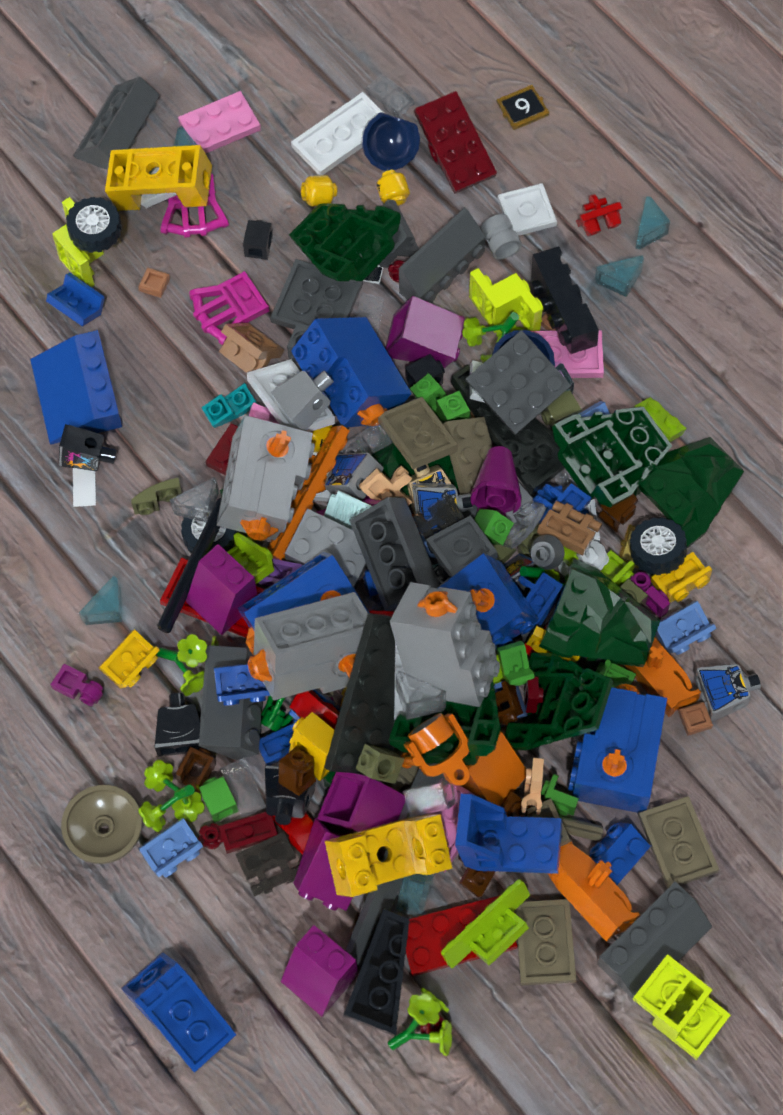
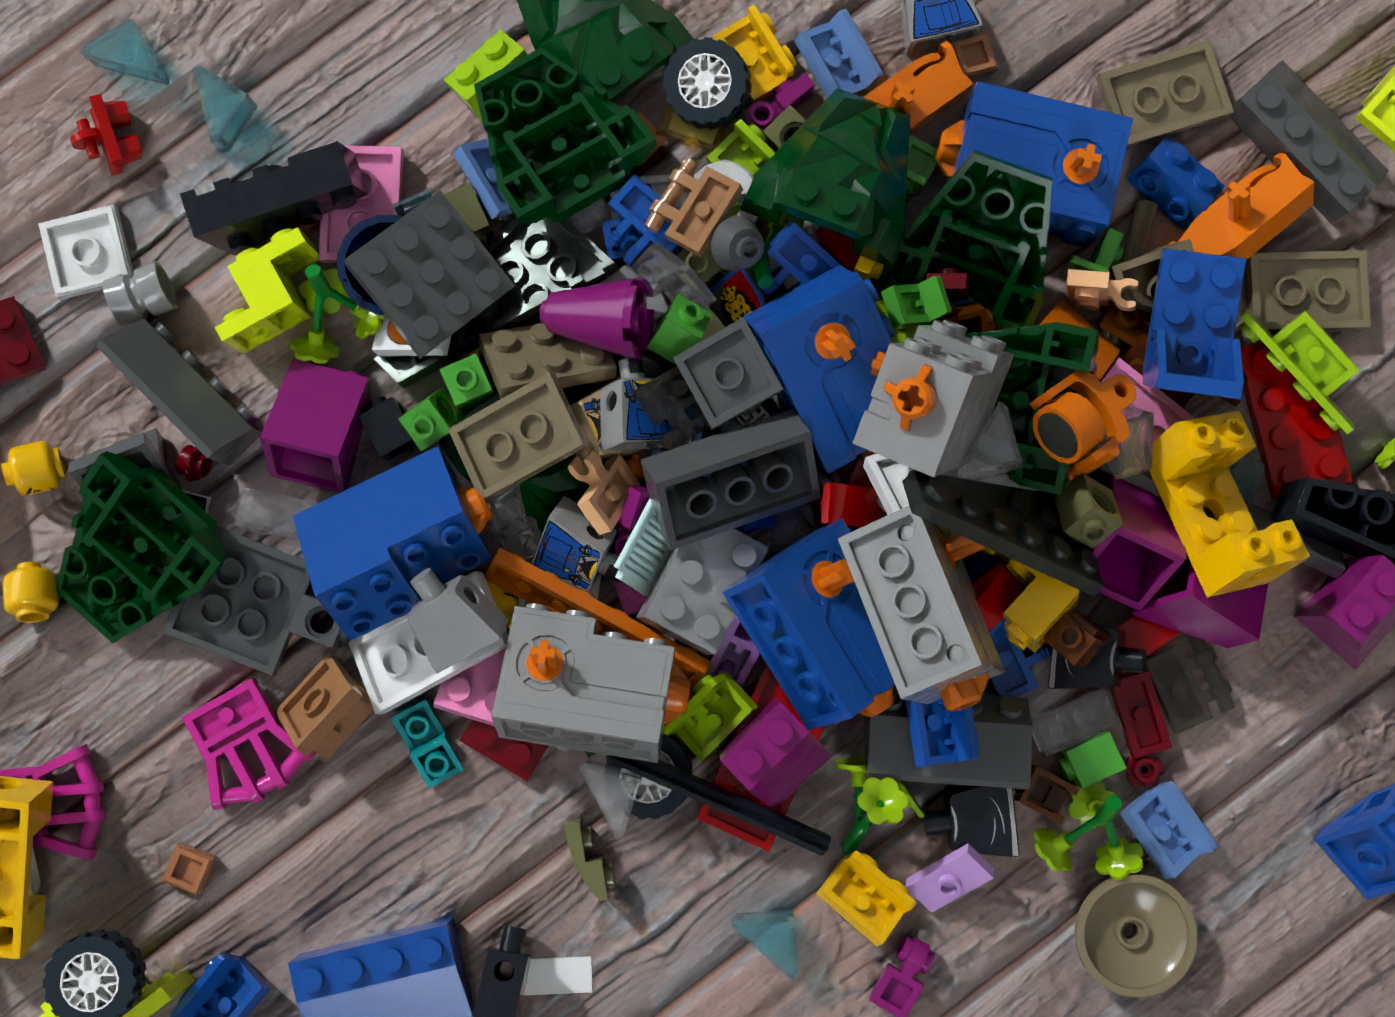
camera: 90 degrees left, 20 degrees up
(141, 708) = (950, 878): none -> lavender plate
(257, 239) = (118, 695): black brick -> none

